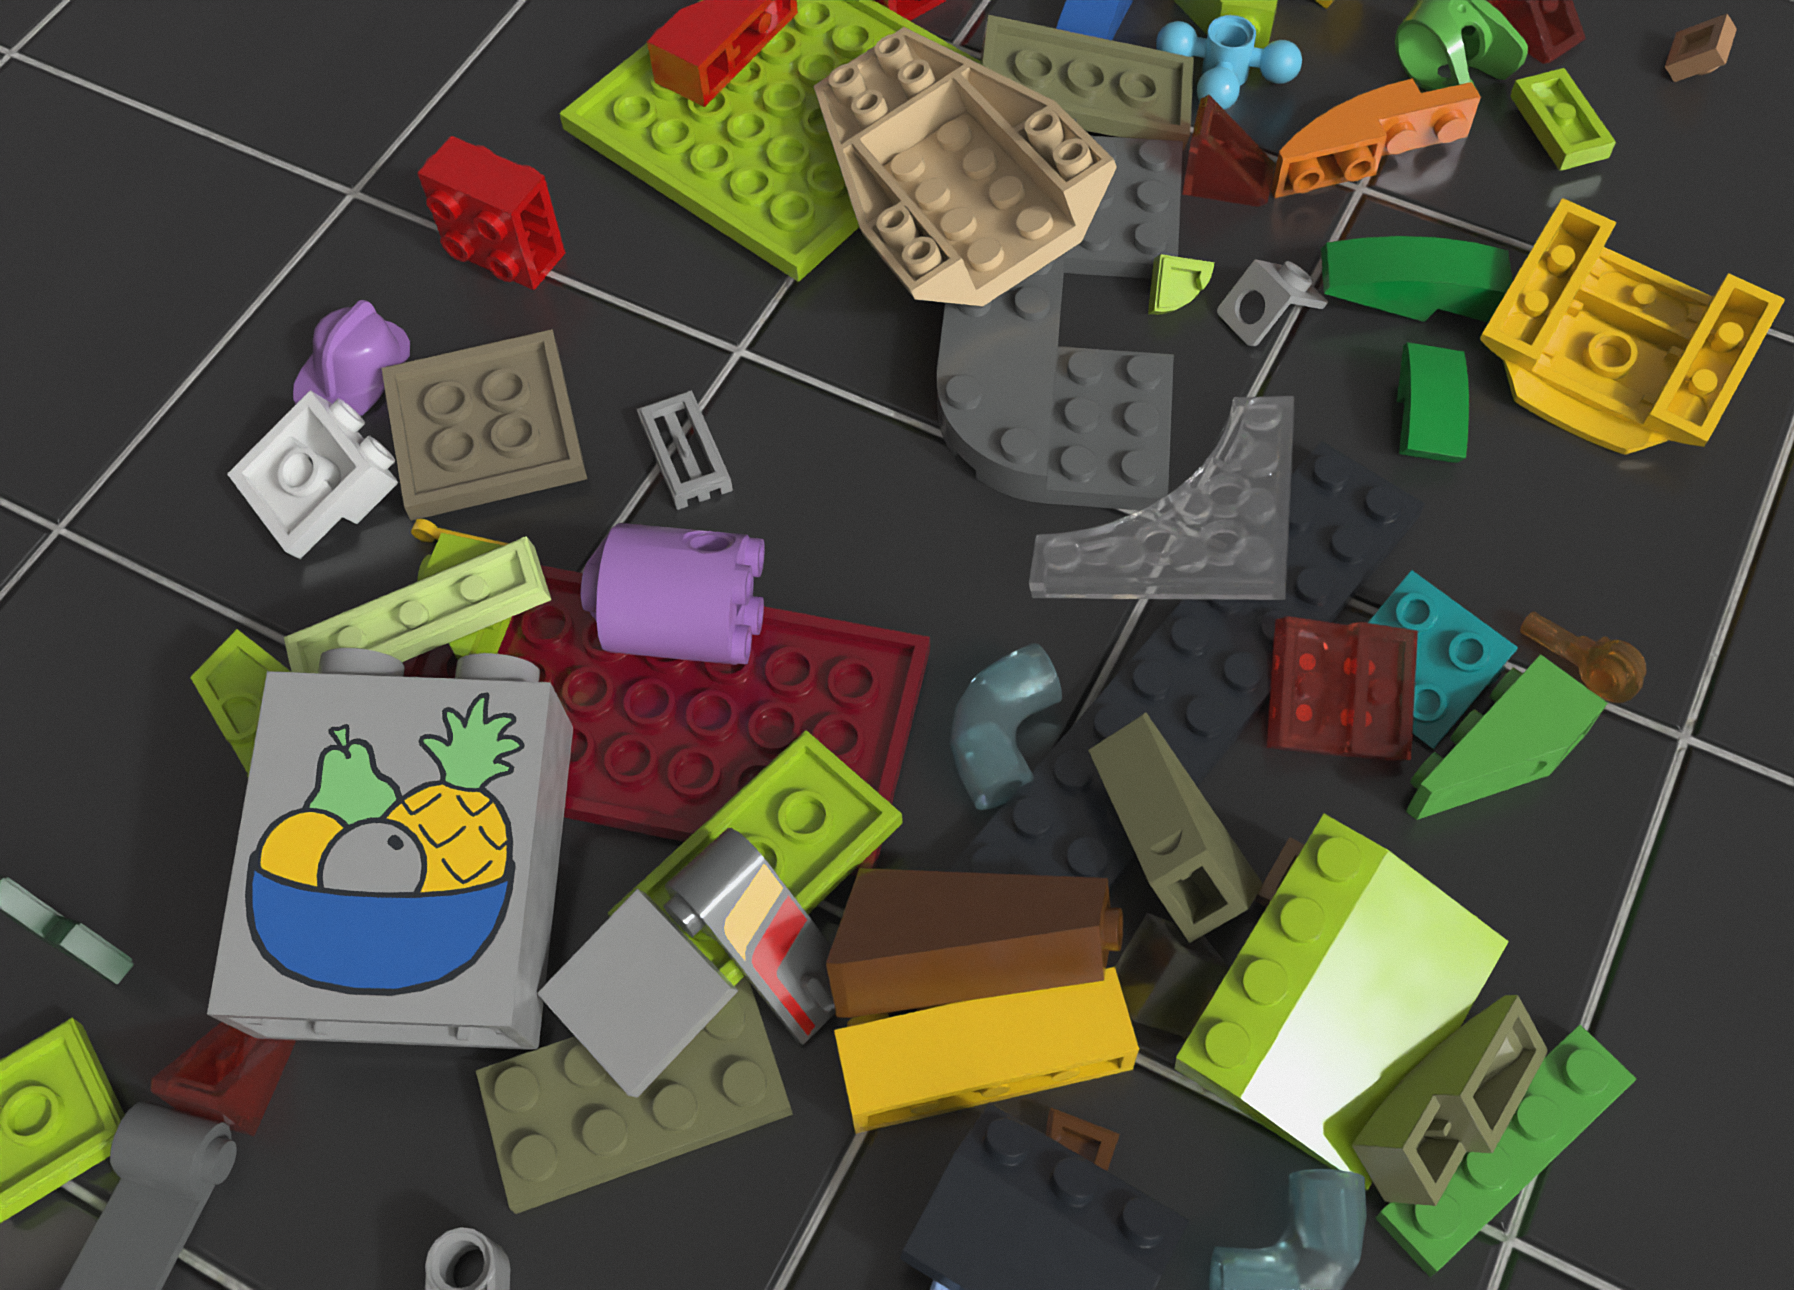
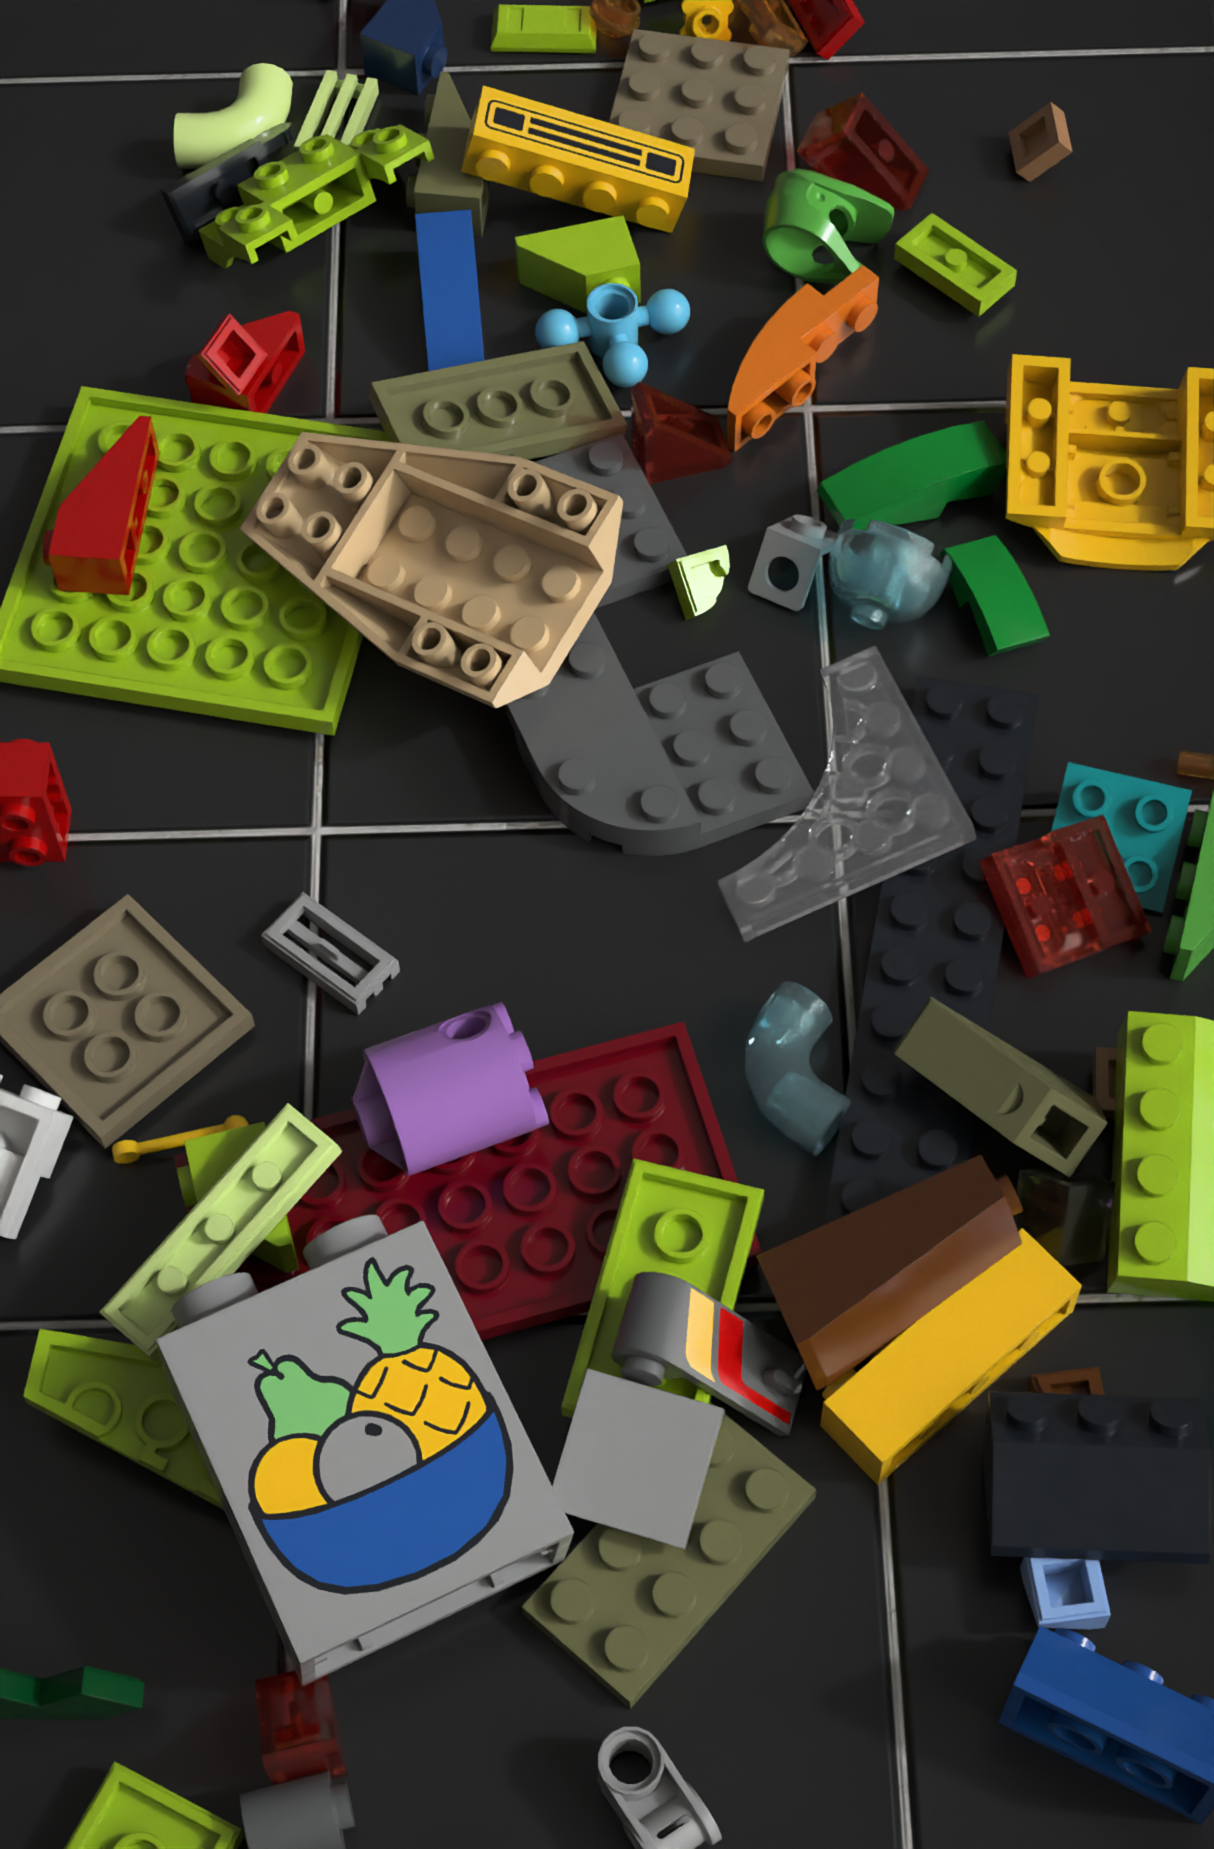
camera: 30 degrees left, 0 degrees up
(1340, 340) = (885, 573): none -> clear light blue cylinder

